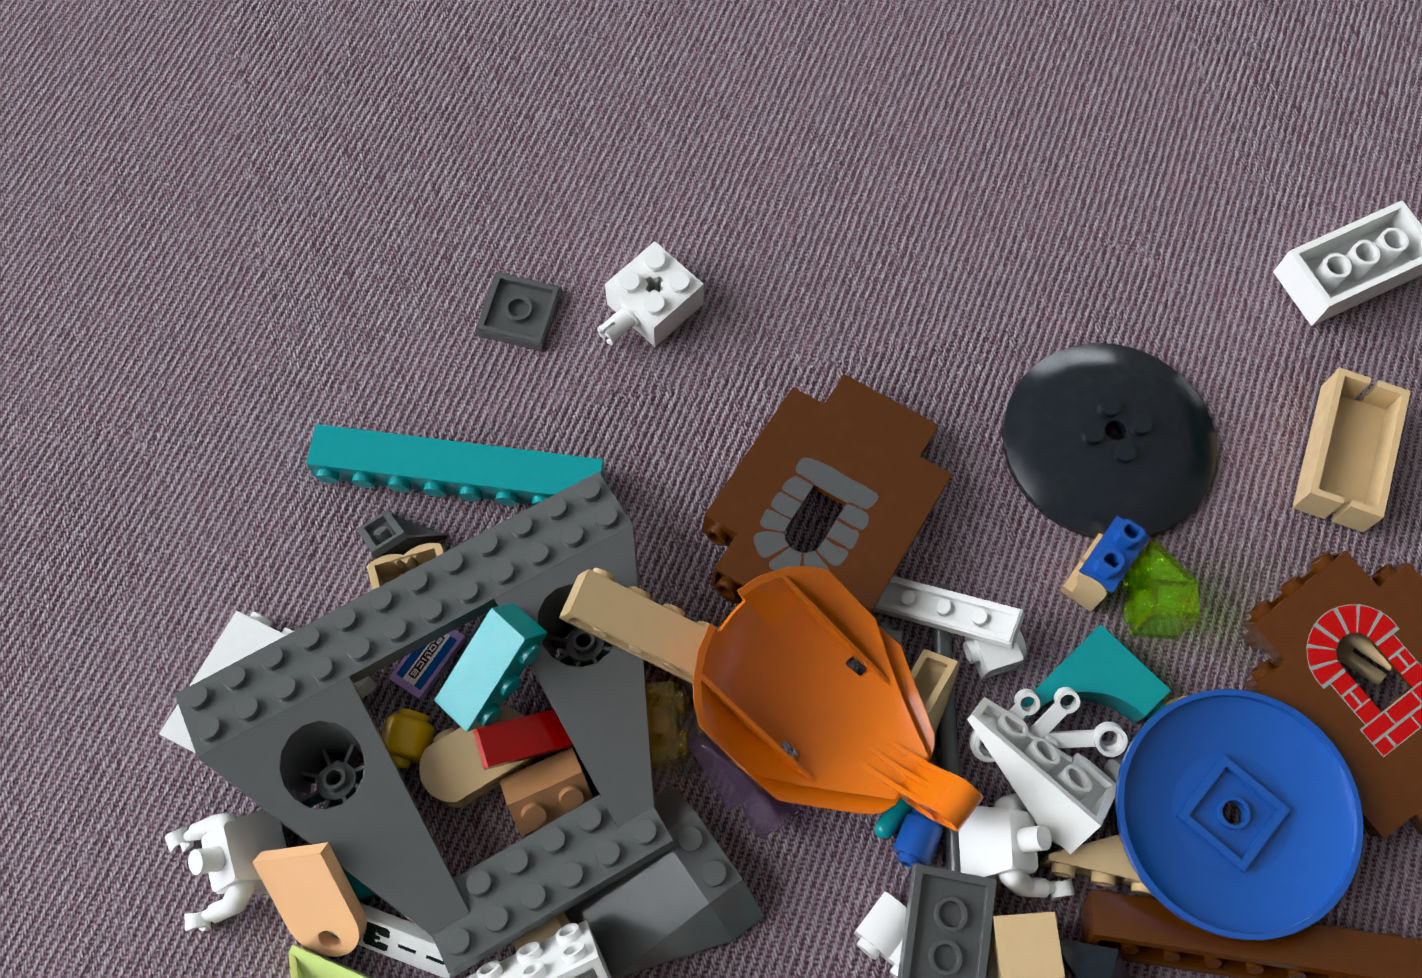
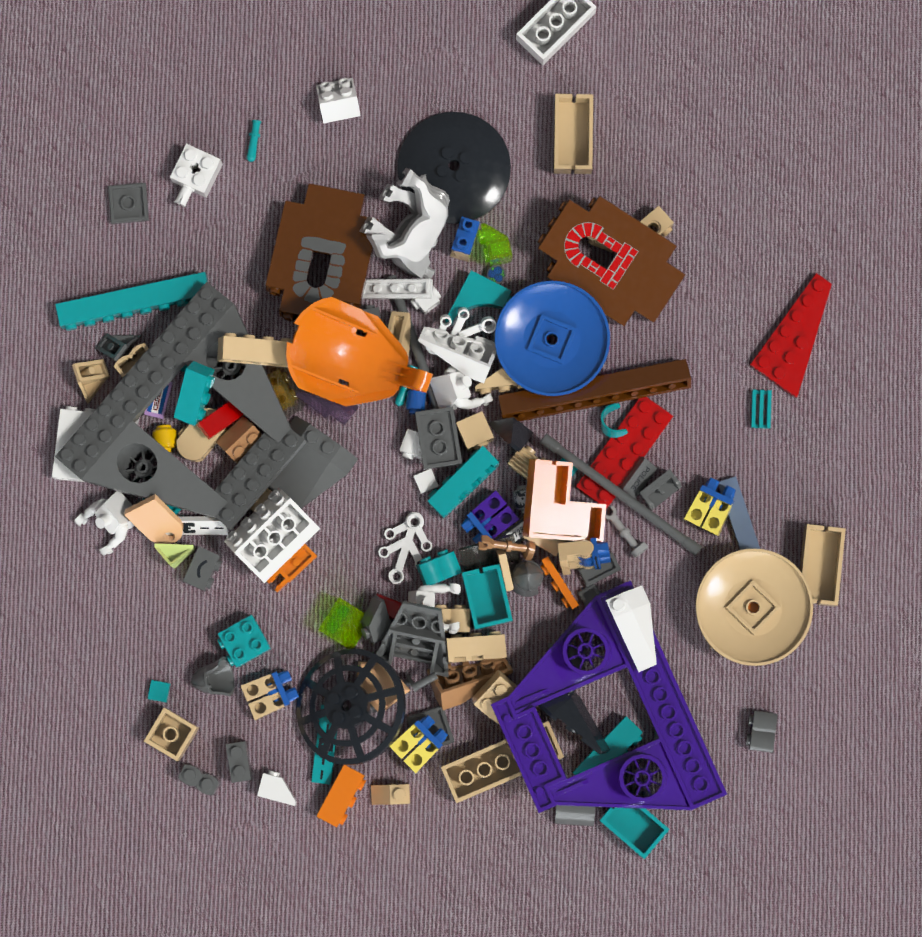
camera: 15 degrees left, 15 degrees up
(320, 574) = (90, 377): none -> tan slope
(773, 275) = (252, 148): none -> teal piece
(938, 264) = (338, 100): none -> white slope
(1013, 526) = (416, 232): none -> piece
(1144, 648) = (496, 274): none -> tile

